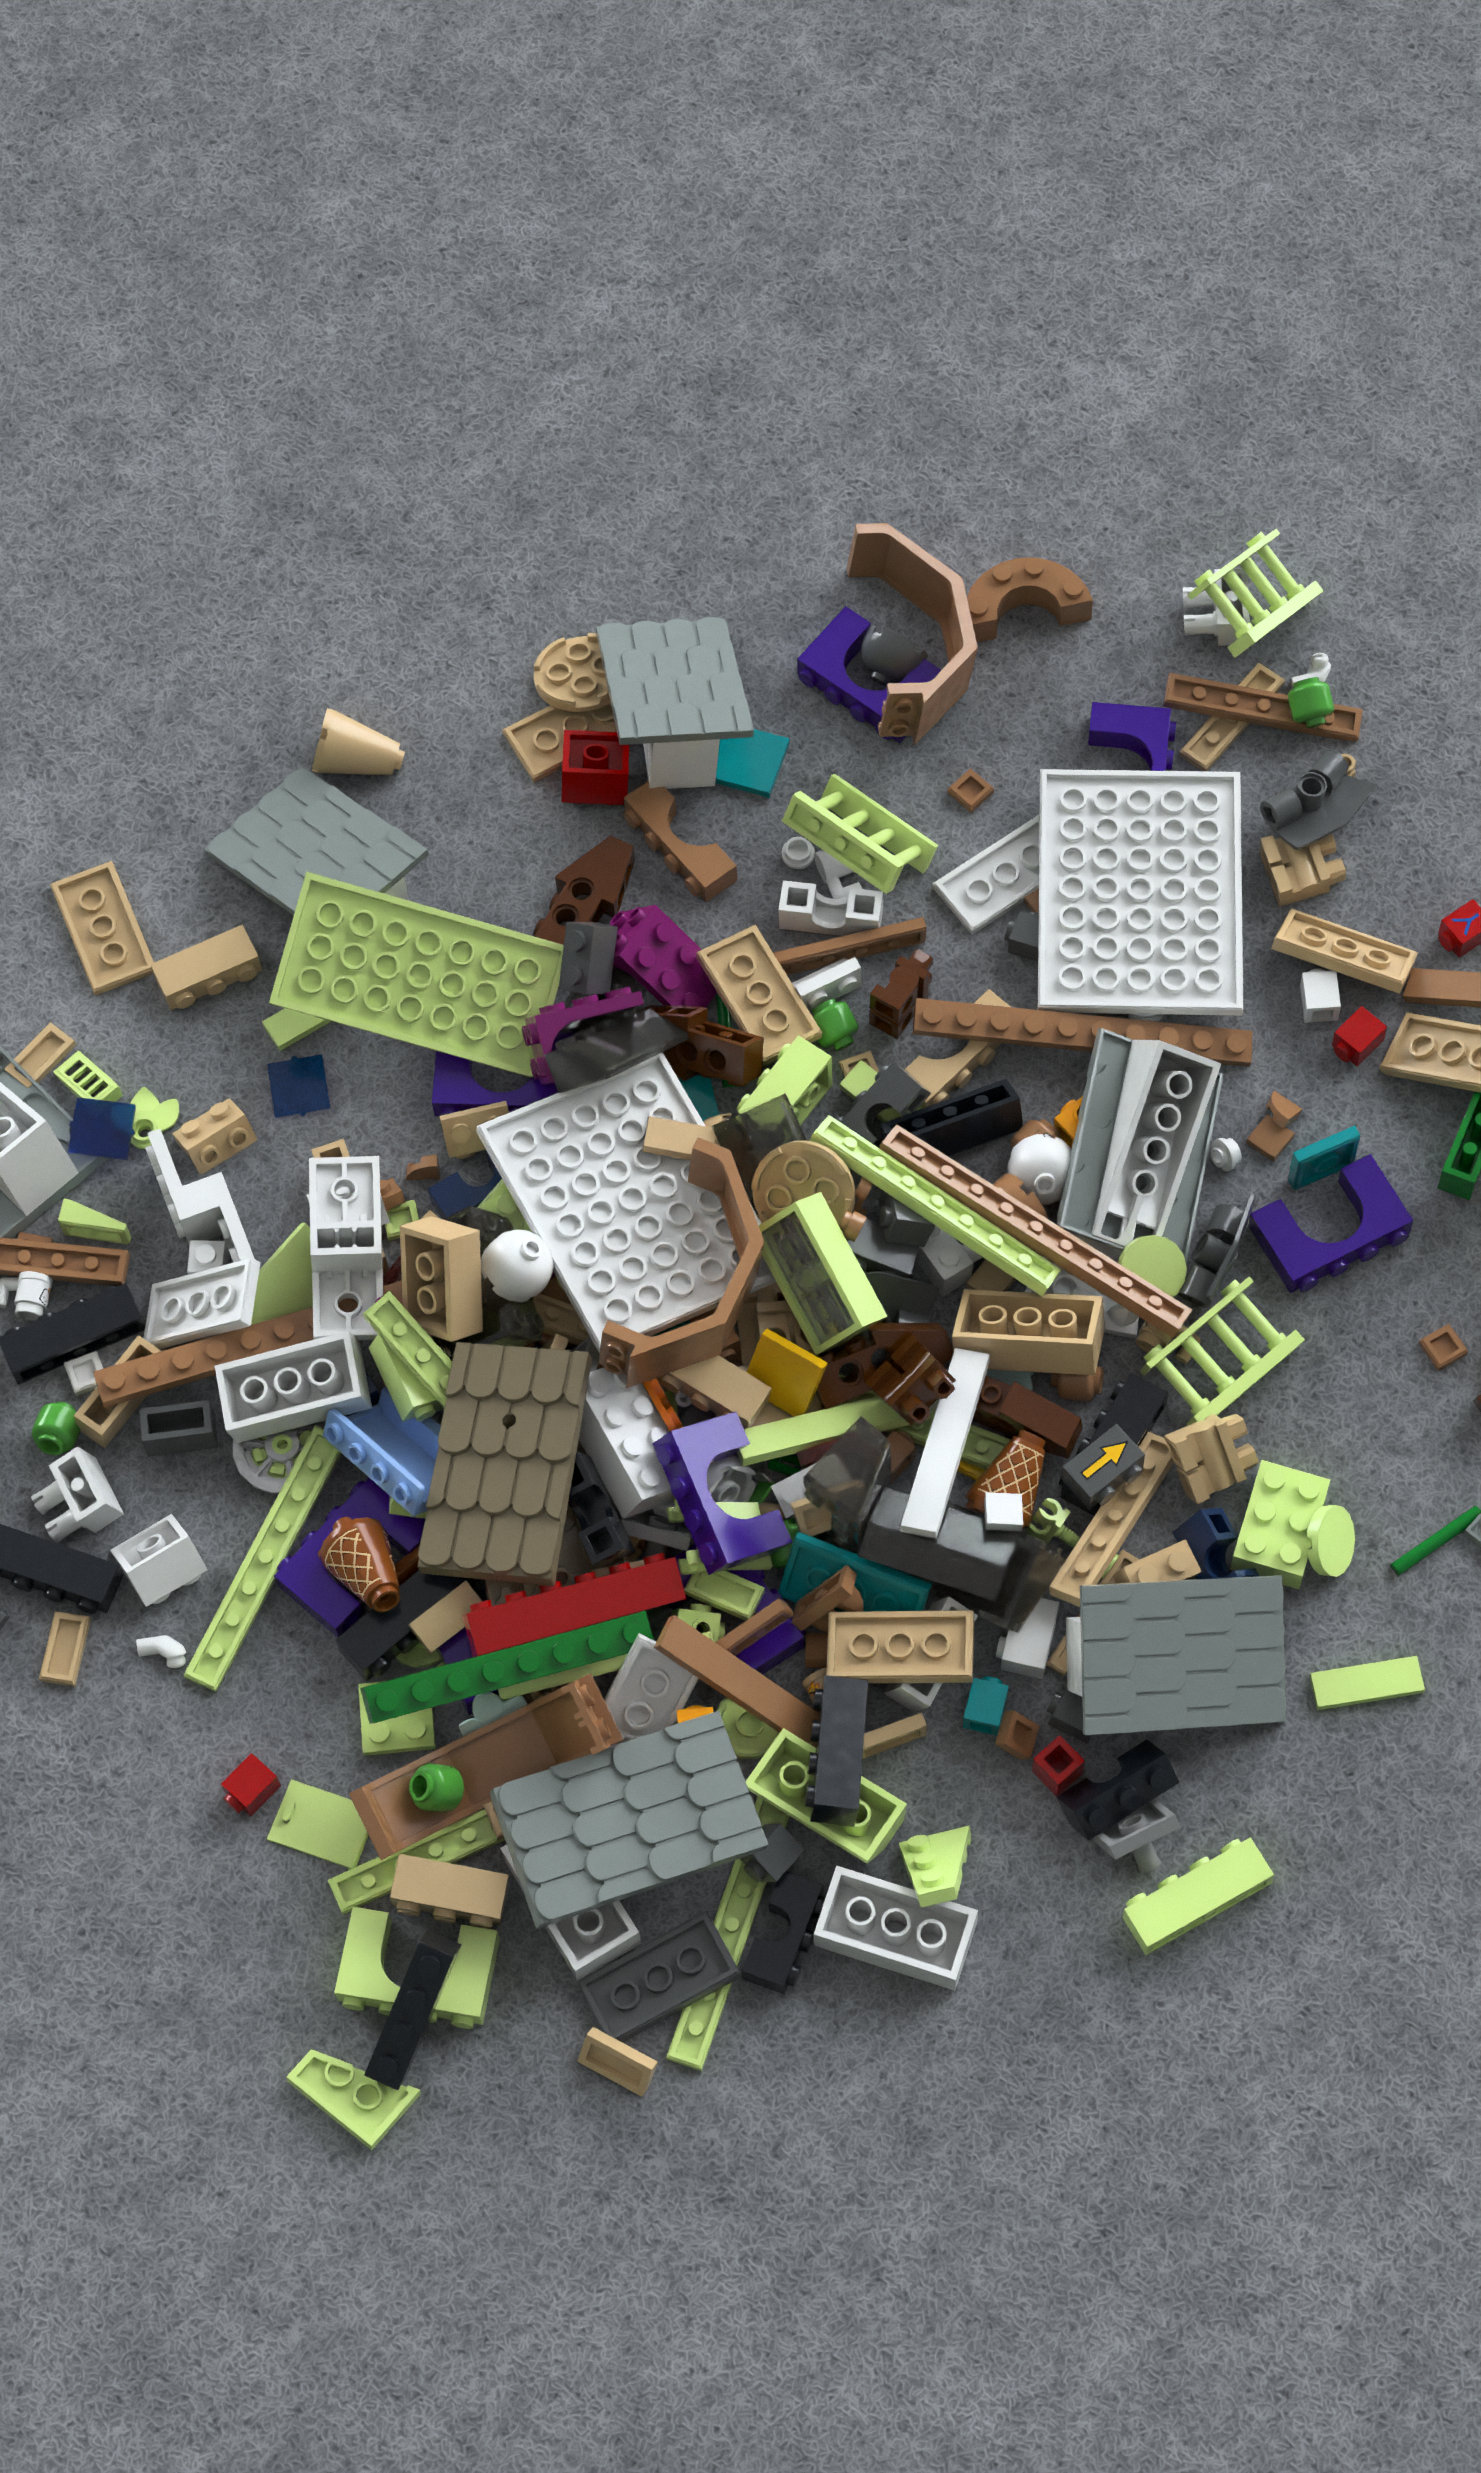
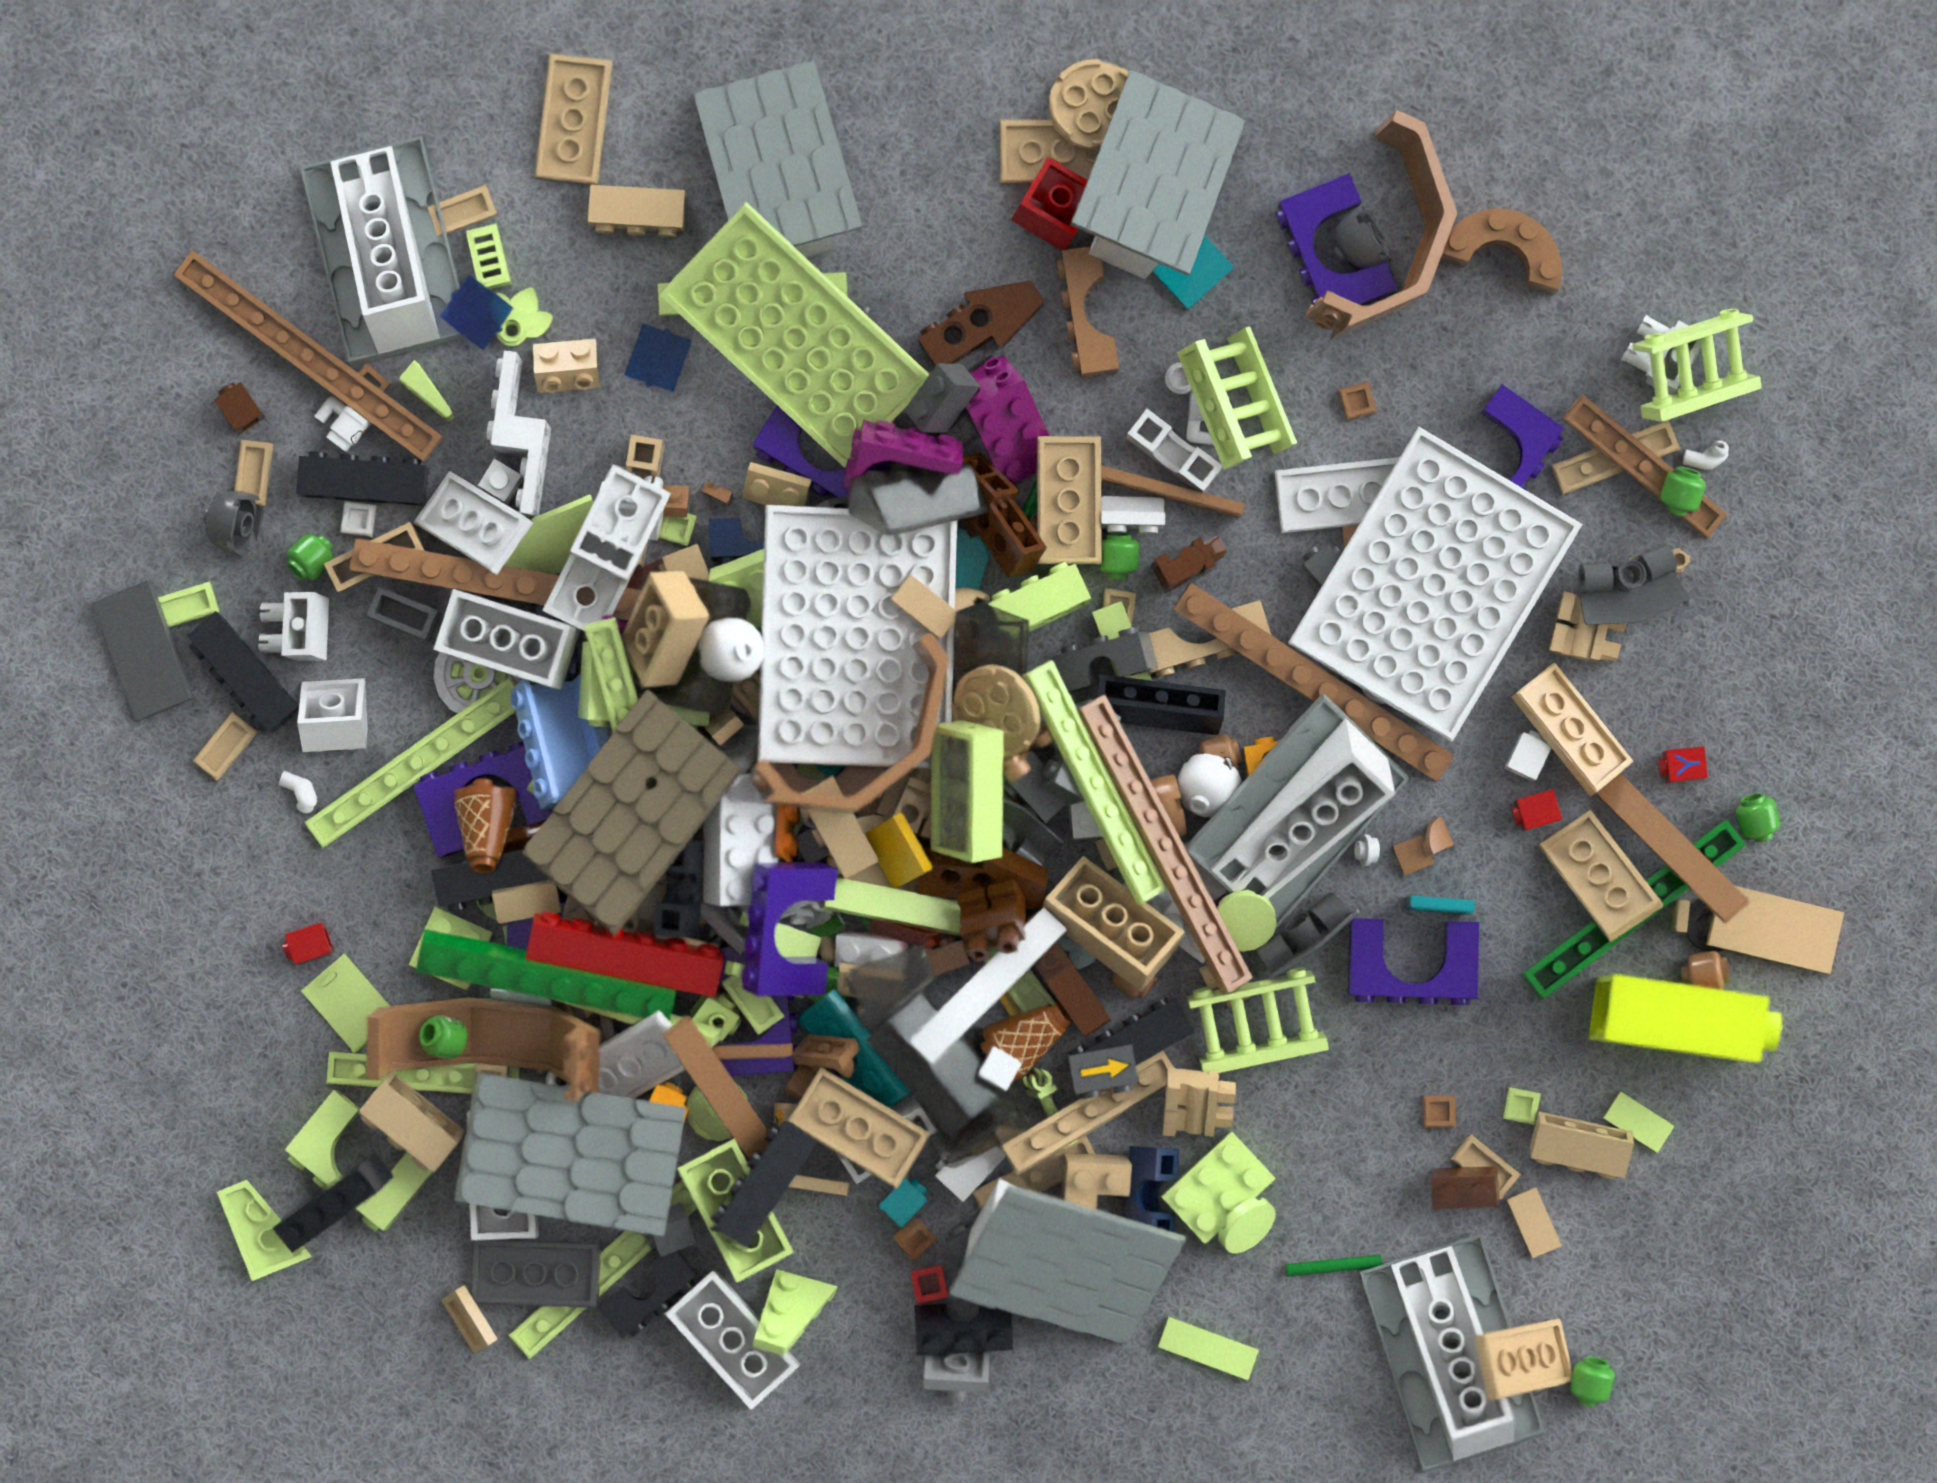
camera: 25 degrees right, 20 degrees up
(354, 748) = (864, 72): tan cone -> none
(1198, 1895) = (975, 1441): yellowish green brick -> none

